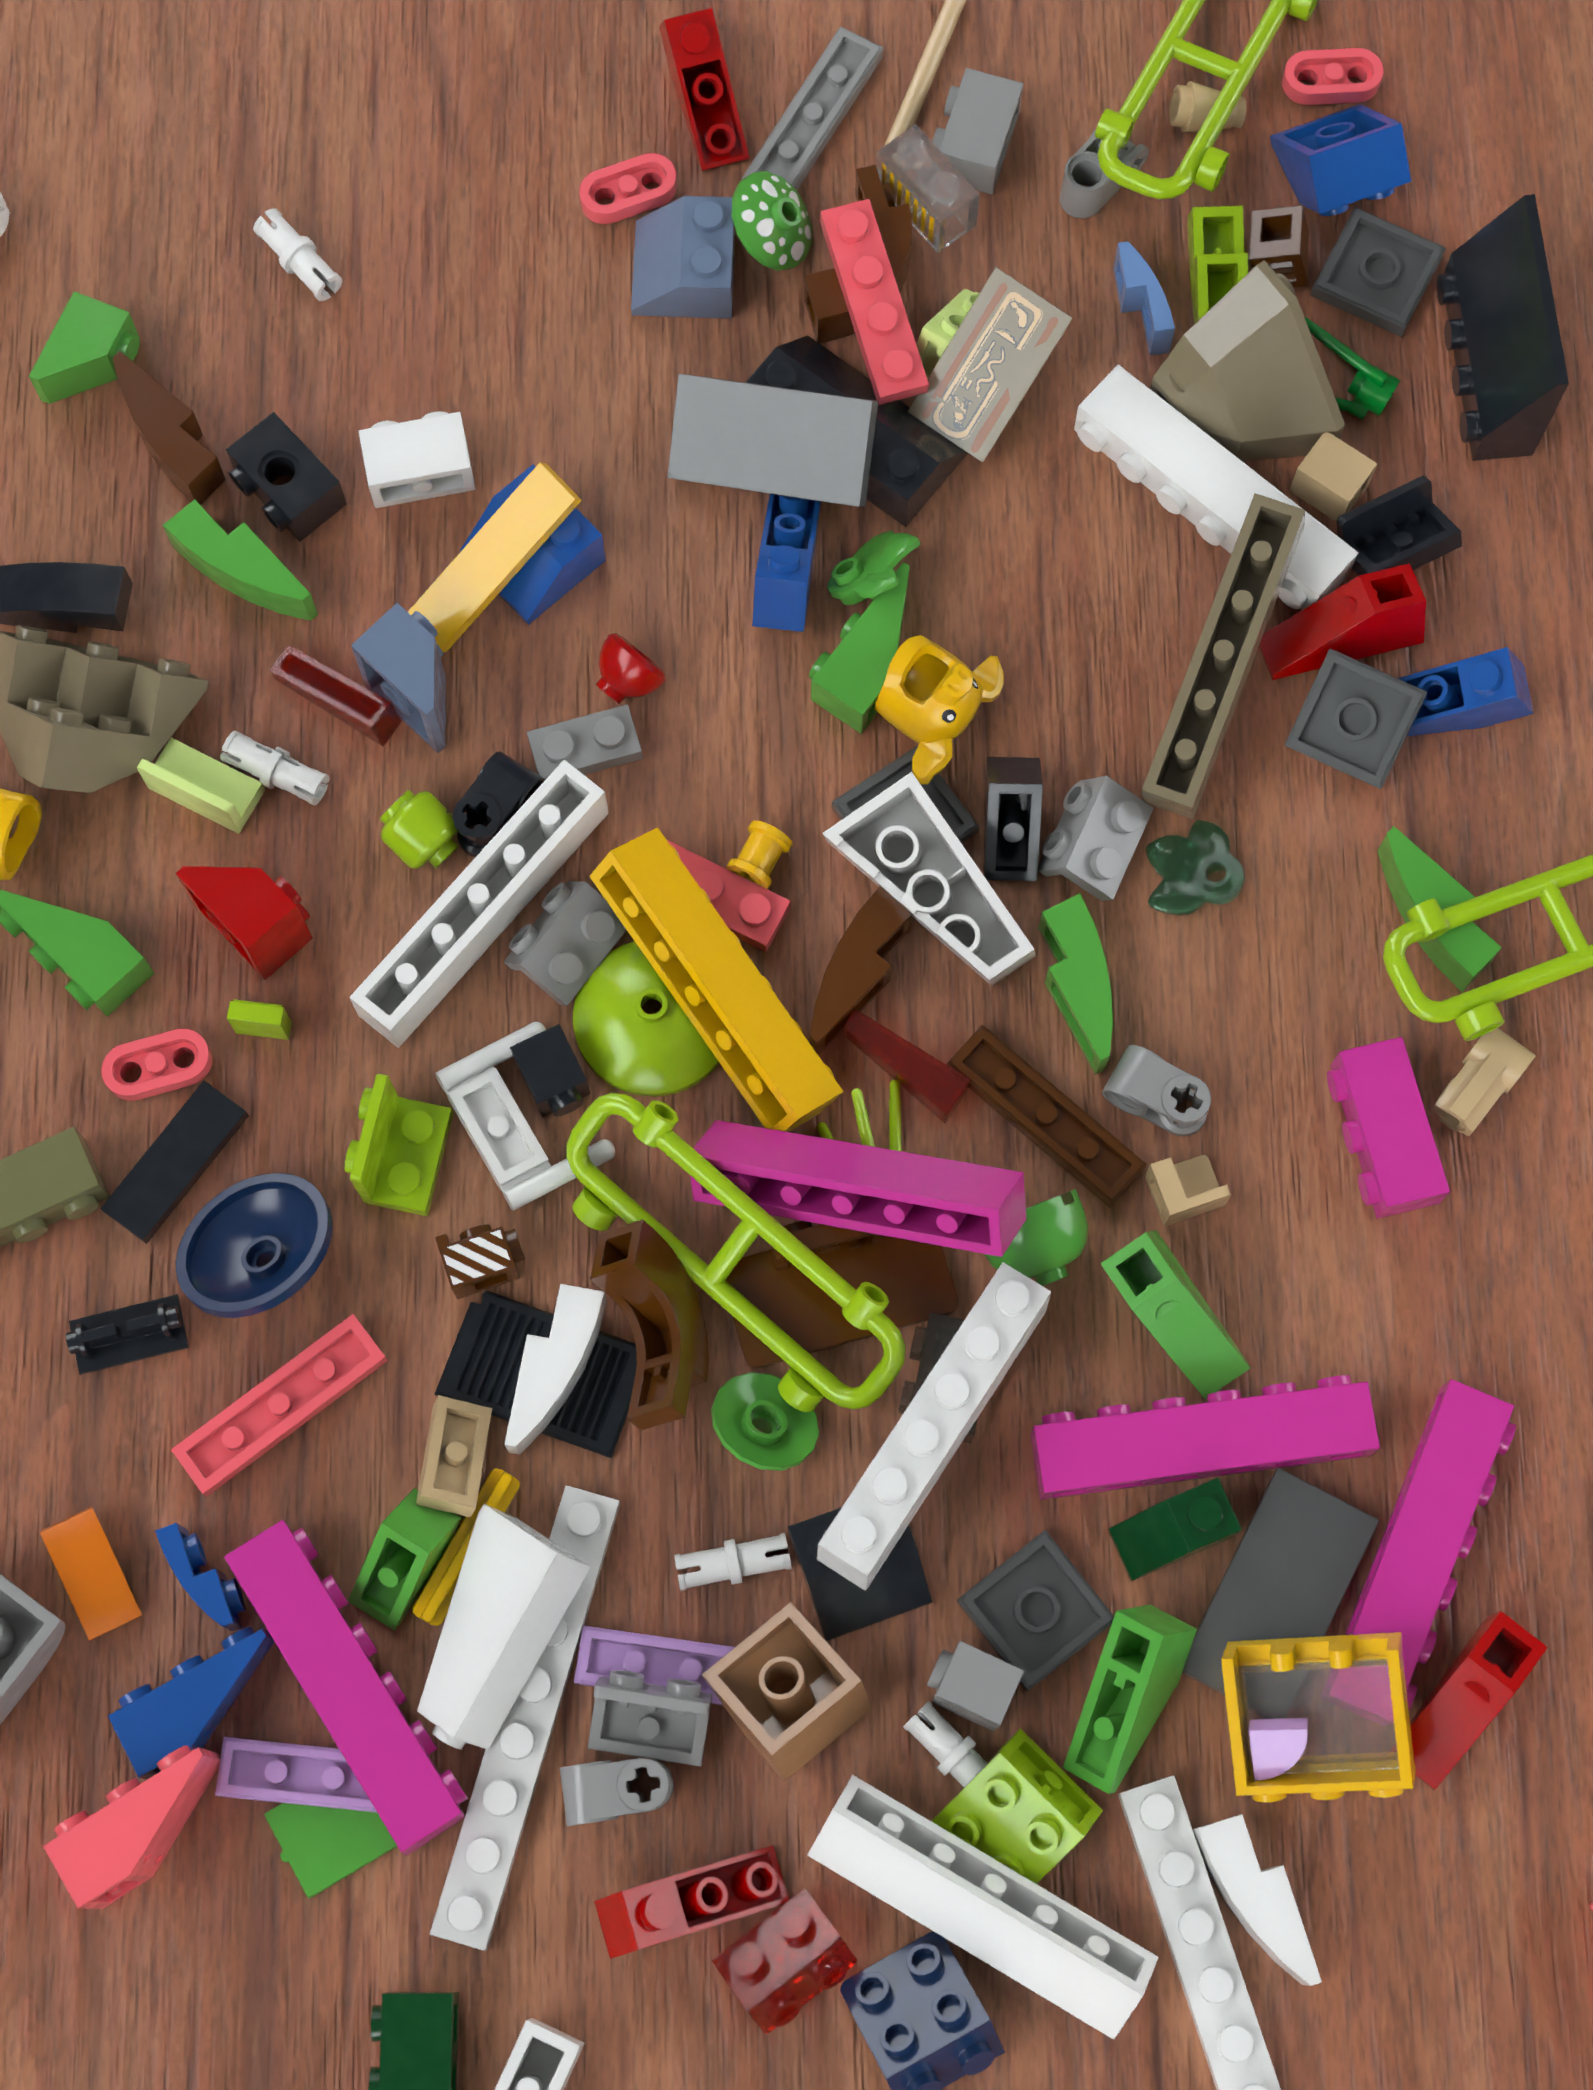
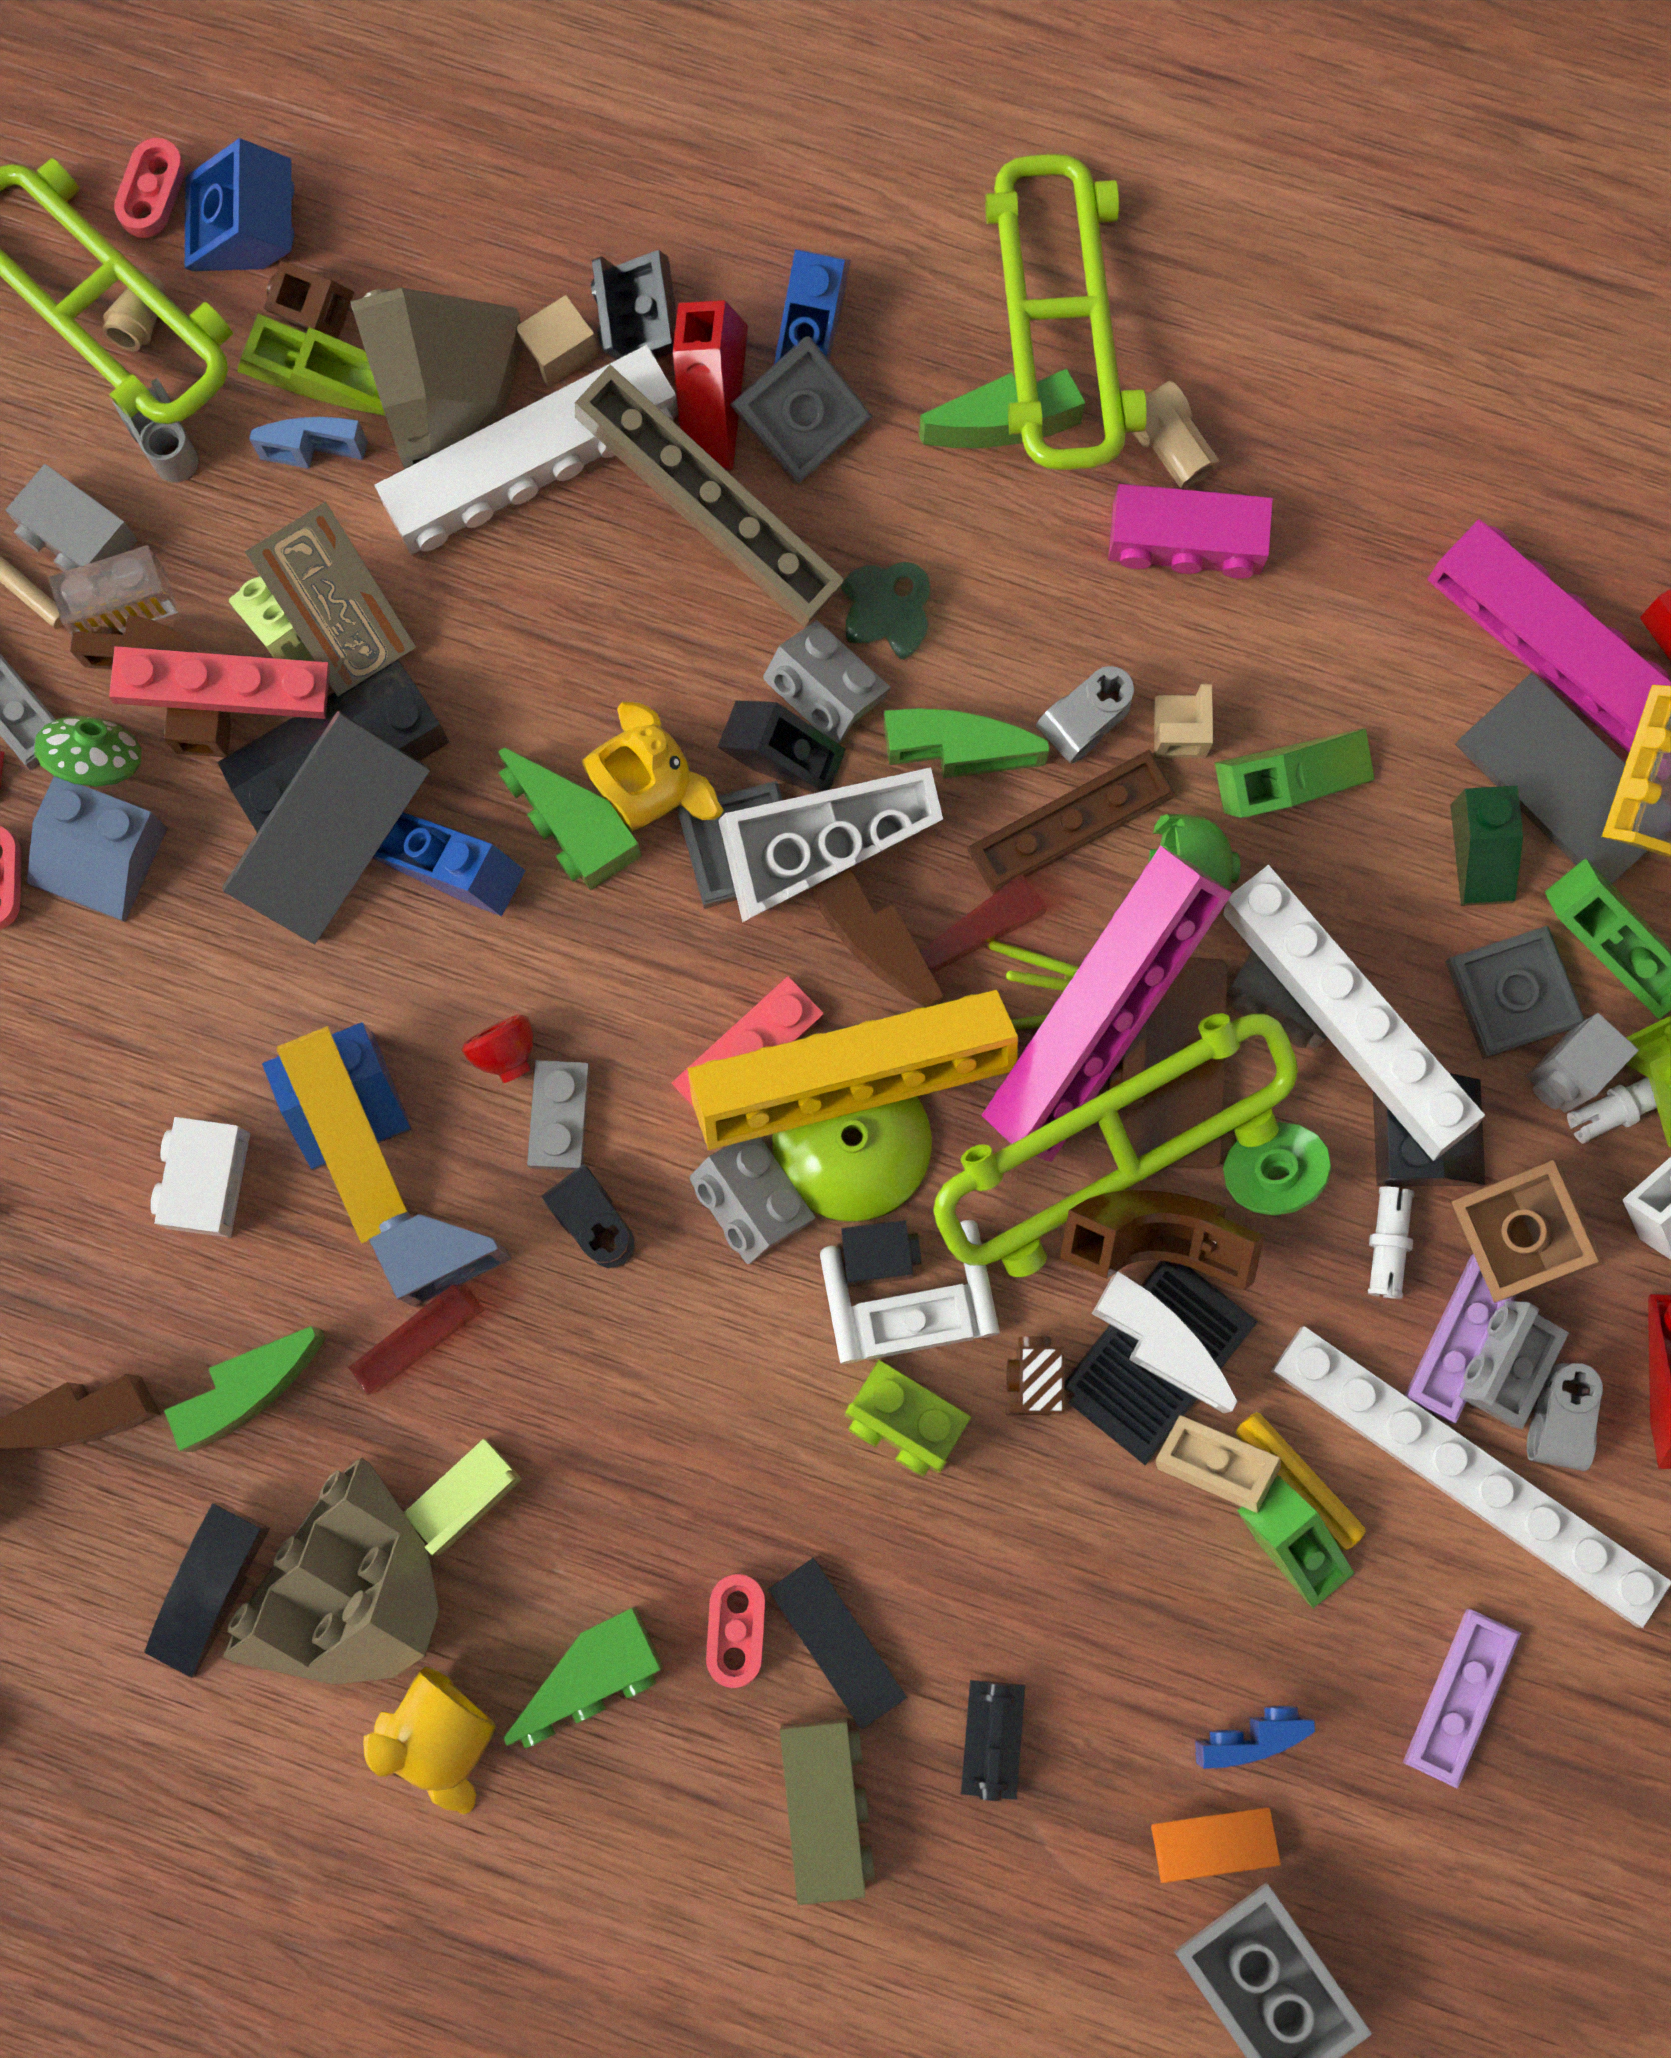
camera: 70 degrees left, 5 degrees up
(129, 1838) = (1489, 1895): coral slope -> none
(189, 1704) = (1378, 1803): blue slope -> none
(250, 912) = (623, 1489): red slope -> none
(254, 1245) = (930, 1594): dark blue dish -> none
(259, 1019) = (727, 1515): lime tile -> none
(274, 767) = (471, 1421): white pin -> none
(276, 451) = (137, 1313): black brick -> none
(279, 1405) = (1112, 1615): coral plate -> none
(327, 1842) = (1530, 1697): bright green piece -> none
(345, 1686) = (1399, 1633): dark pink brick -> none
(419, 829) = (591, 1299): lime head -> none
(480, 904) = (691, 1263): white brick -> none
(496, 1626) = (1387, 1470): white slope -> none
(760, 853) = (732, 987): yellow bush -> none
(871, 568) = (487, 783): bright green plate -> none
(1203, 1439) = (1415, 793): dark pink brick -> none
(1370, 385) = (478, 275): green plant -> none
(1378, 271) = (363, 226): dark grey tile -> none
(1503, 335) = (485, 131): black slope -> none

